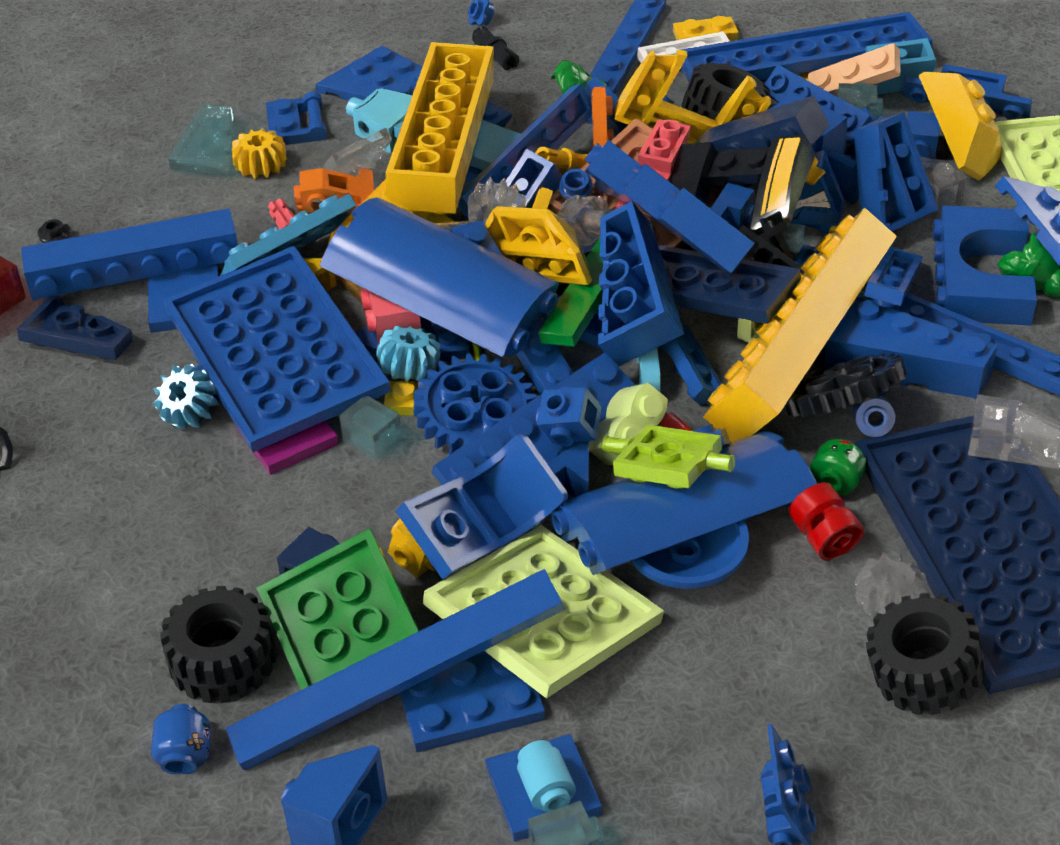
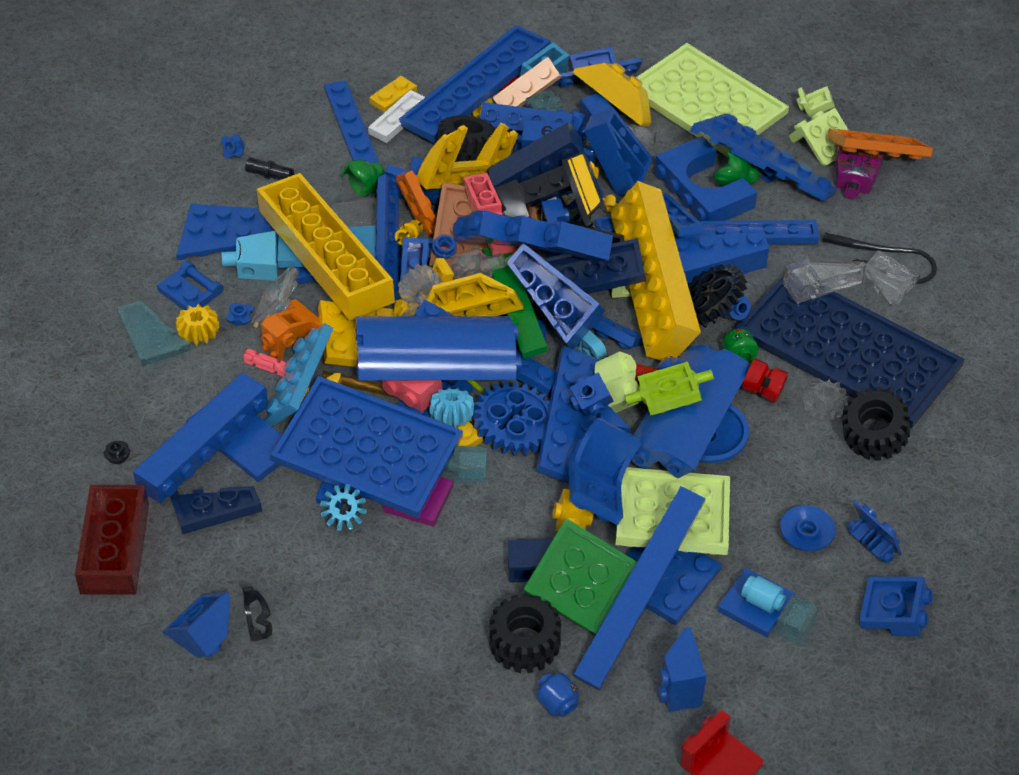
camera: 40 degrees left, 5 degrees up
(310, 161) = (239, 314): none -> blue plate
(705, 719) = (811, 520): none -> blue dish

